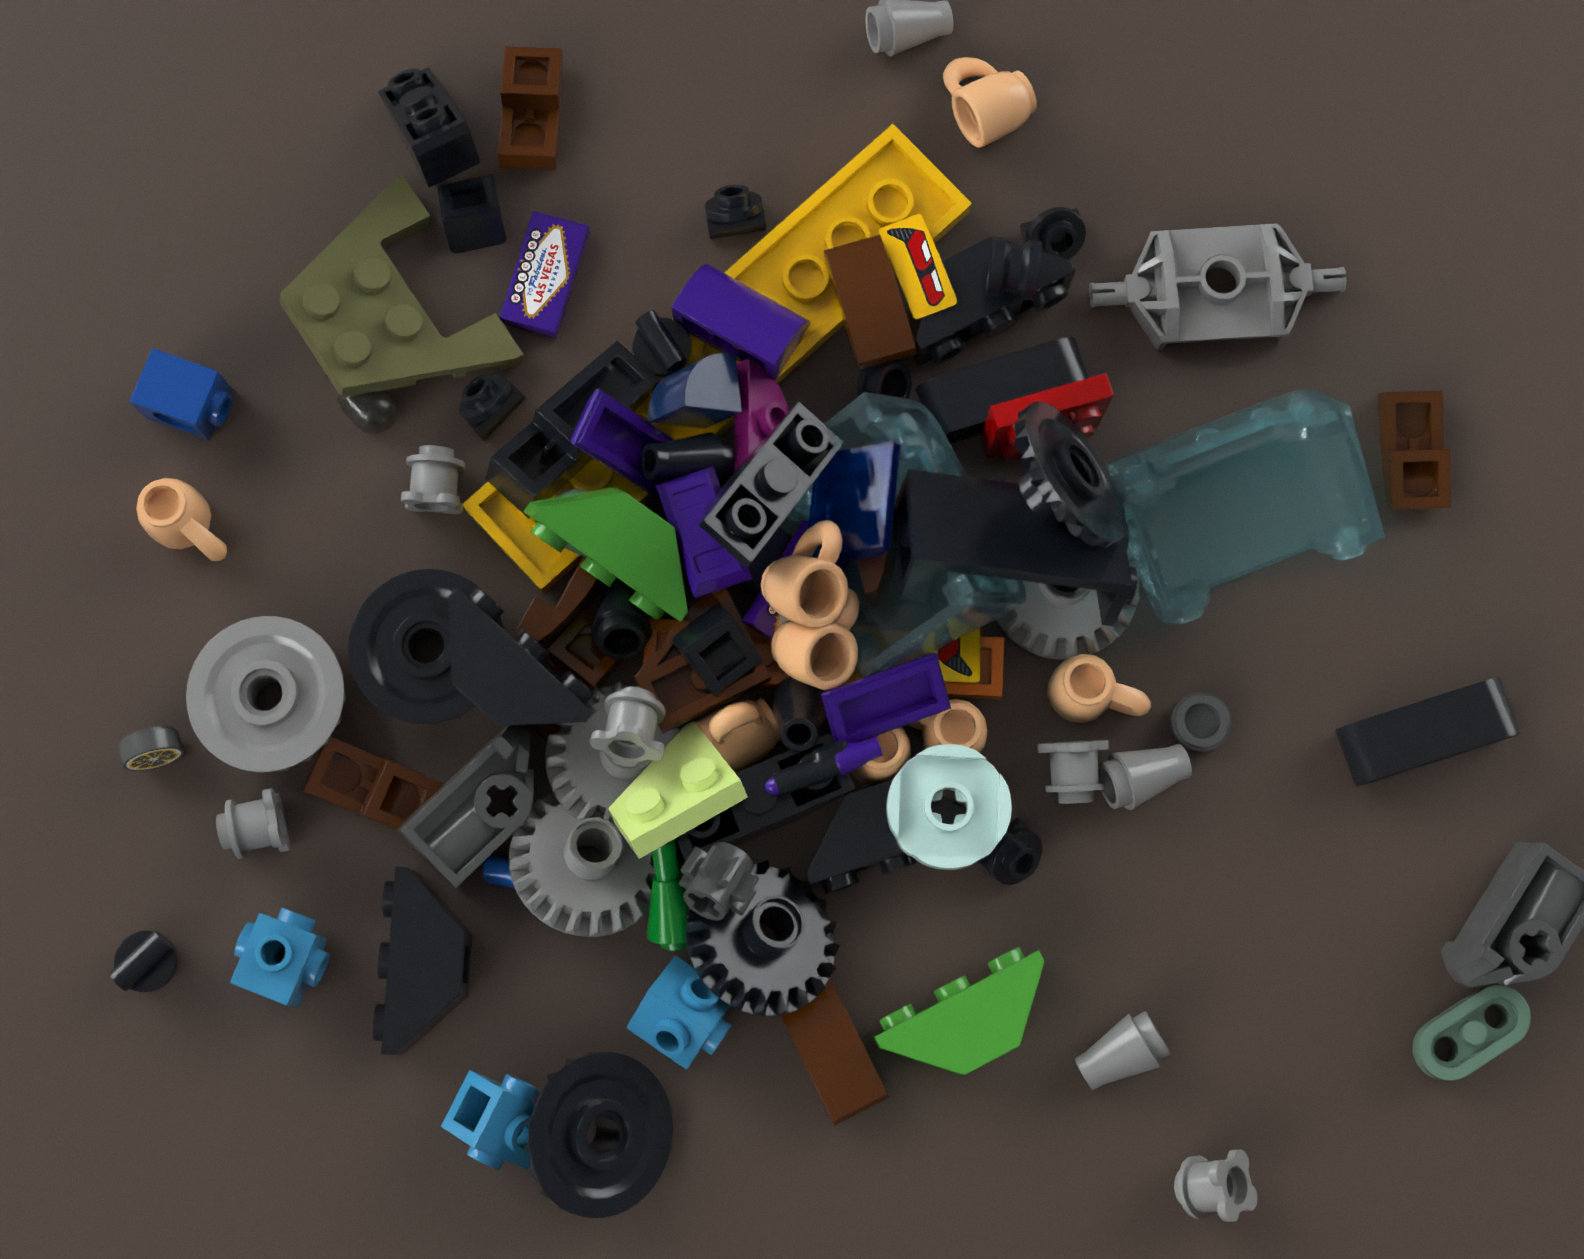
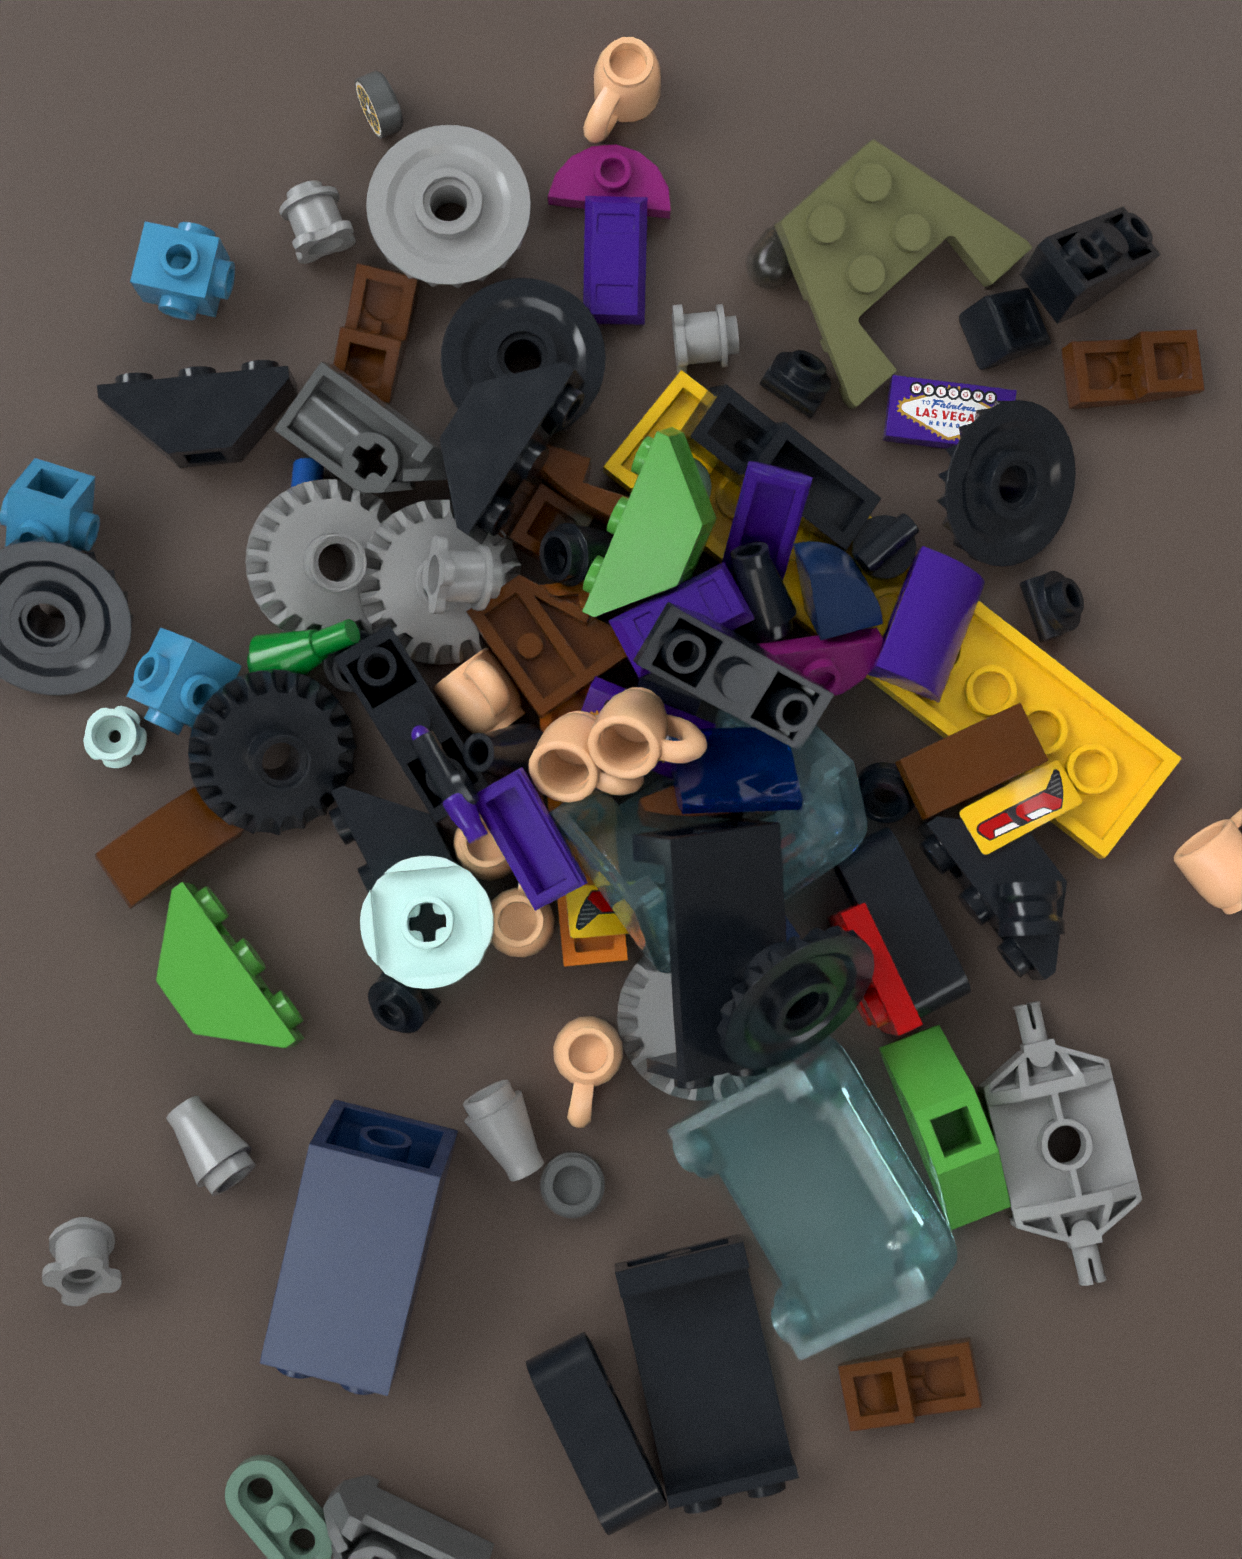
camera: 75 degrees right, 5 degrees up
(144, 962) = (164, 140): black plate -> none
(182, 394) = (752, 64): blue brick -> none
(266, 543) = (610, 172): none -> magenta plate
(342, 550) = (615, 259): none -> dark purple tile
(620, 228) = (1008, 483): none -> black gear
(676, 792) = (399, 635): yellowish green wing -> none
(716, 649) = (559, 653): black slope -> none
(718, 881) = (313, 693): dark grey gear -> none
(729, 1106) = (98, 731): none -> light aqua plate
(1059, 231) = (1088, 955): black plate -> none
(1074, 769) = (498, 1054): light grey brick -> none
(1192, 378) = (947, 1126): none -> bright green slope
(1235, 920) = (357, 1247): none -> dark blue slope
(1384, 628) = (706, 1374): none -> black panel

